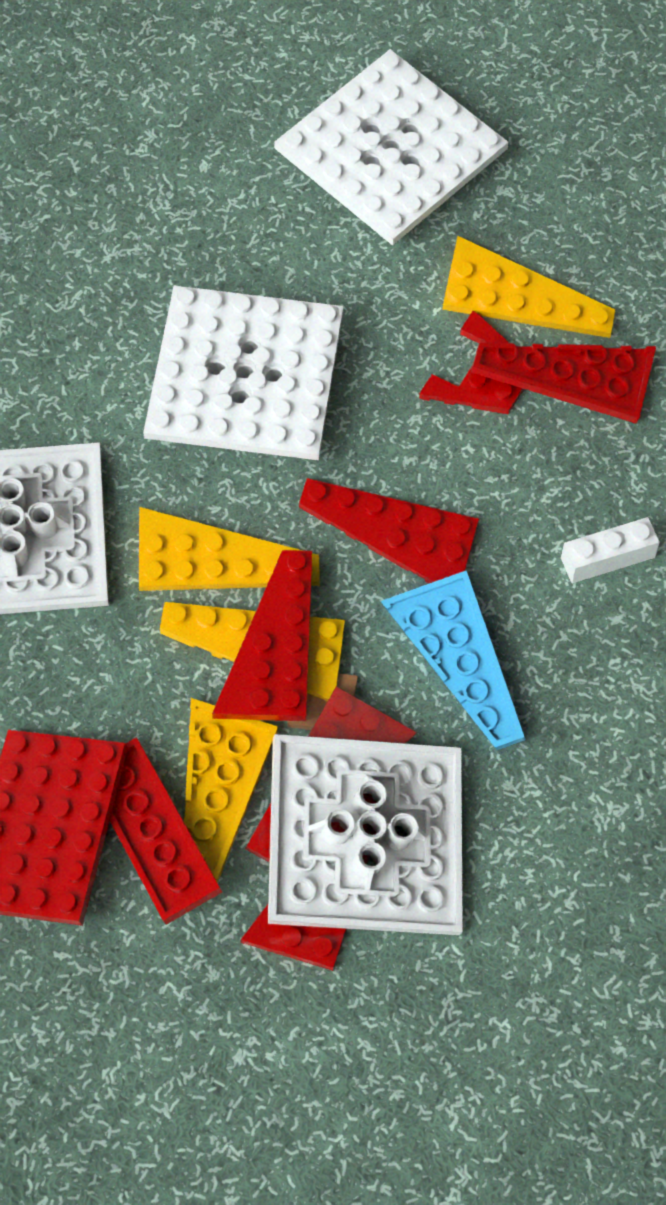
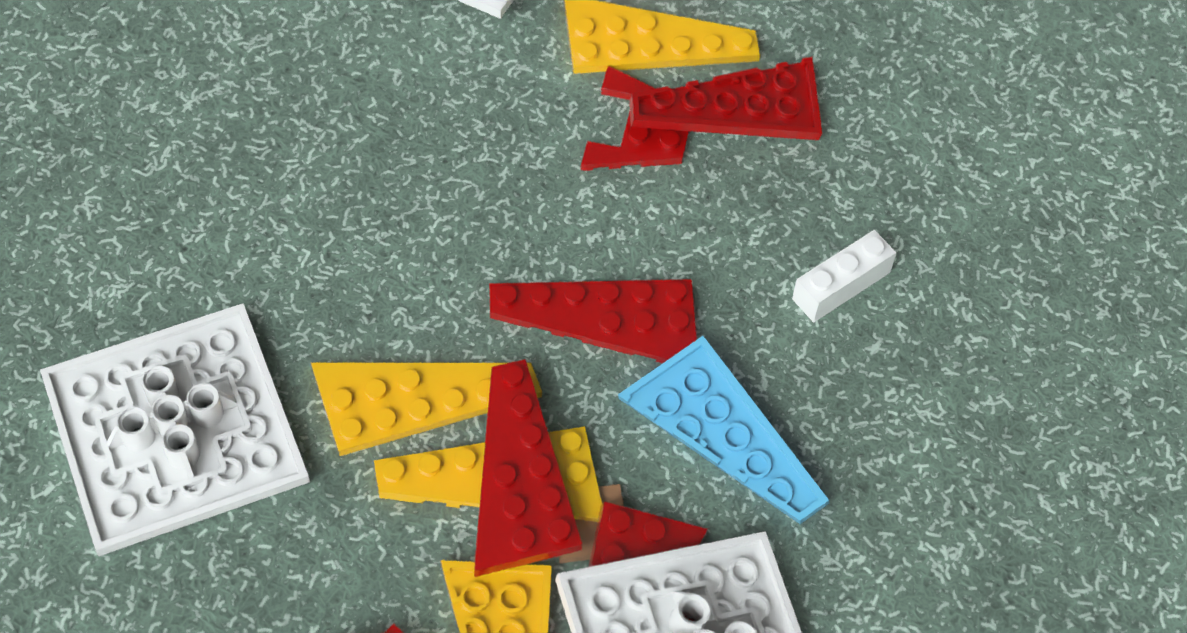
camera: 20 degrees left, 5 degrees down
(249, 346) = (384, 188): white plate -> none

